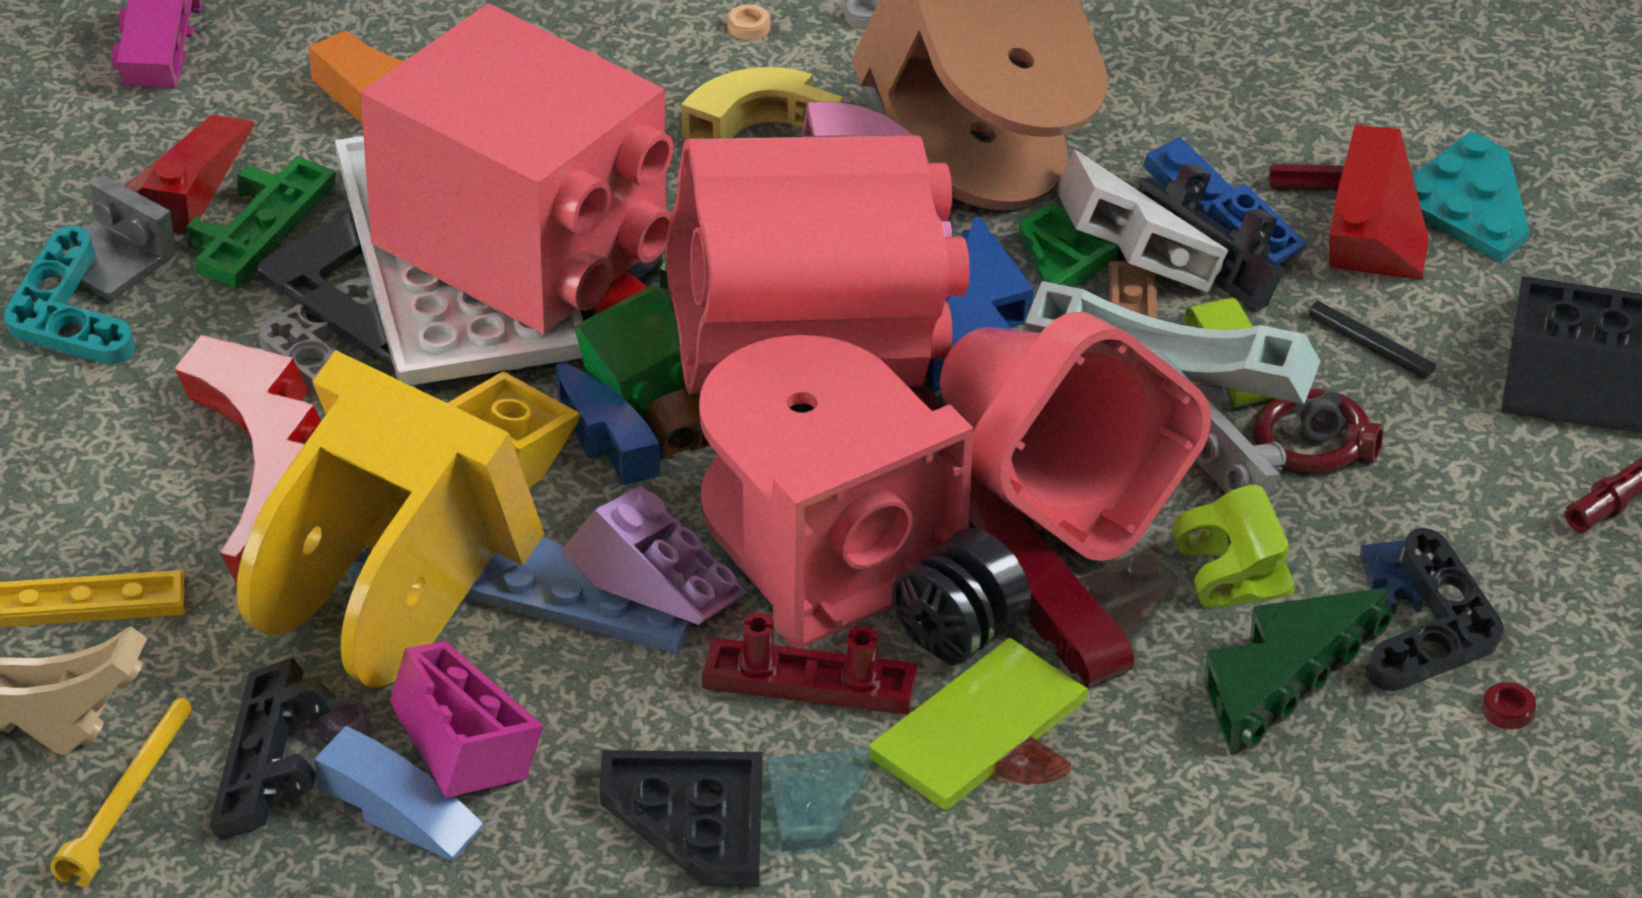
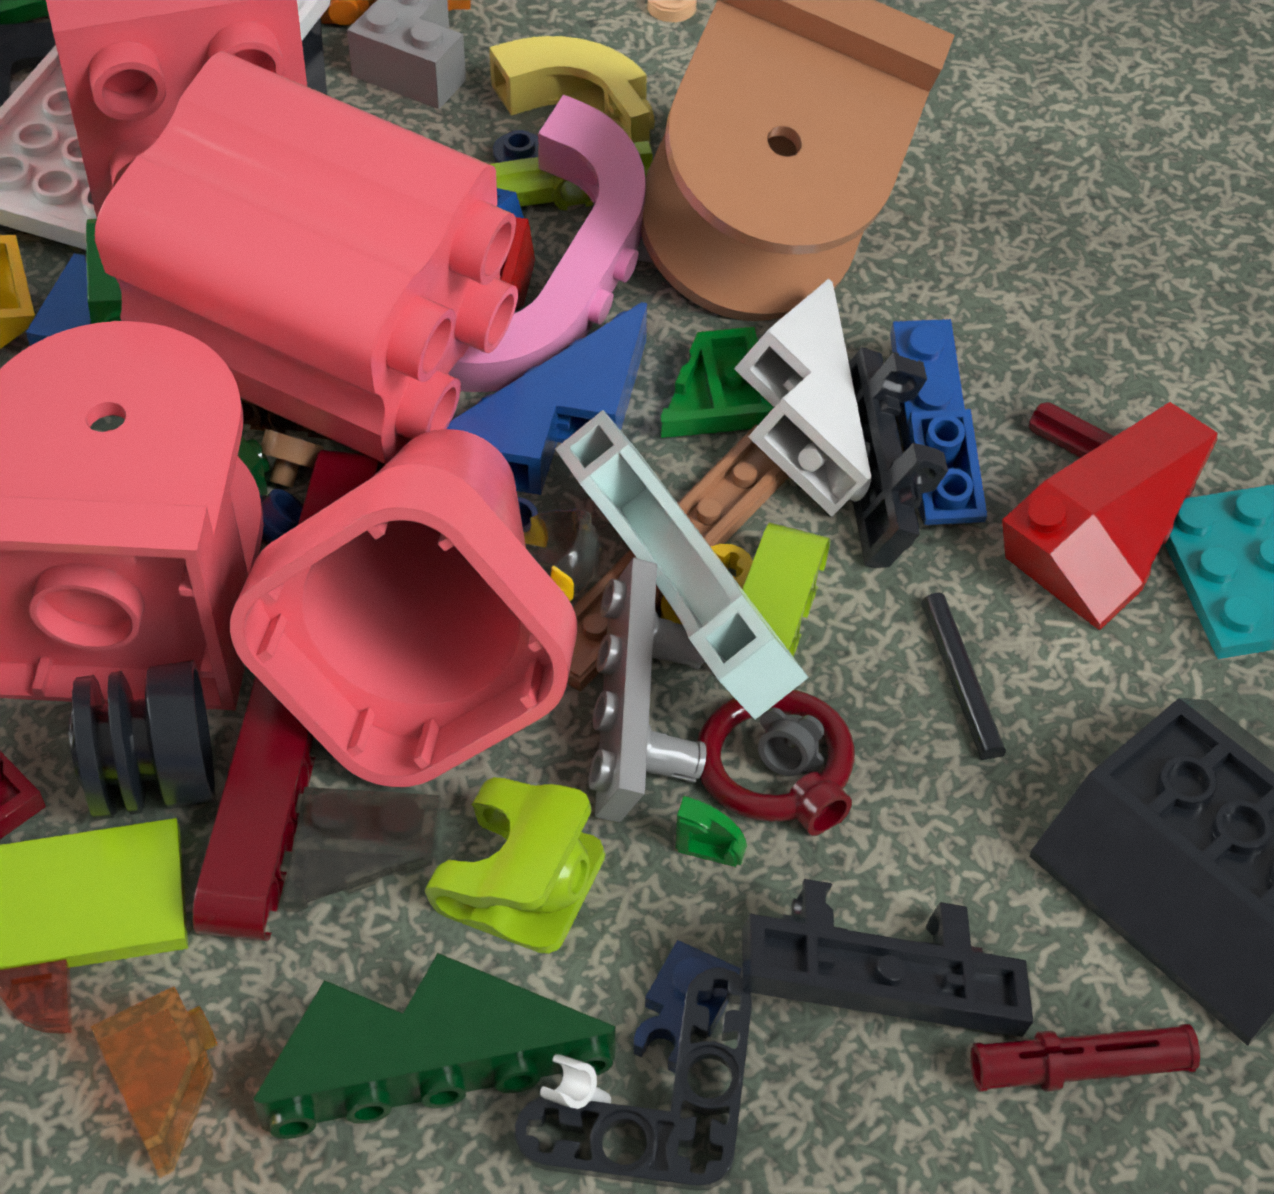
camera: 35 degrees right, 10 degrees up
(1155, 752) = (159, 1069): none -> clear orange slope
(1320, 486) = (708, 834): none -> green tile
(1391, 621) = (577, 1085): none -> white hand
(1500, 490) = (884, 975): none -> black hinge

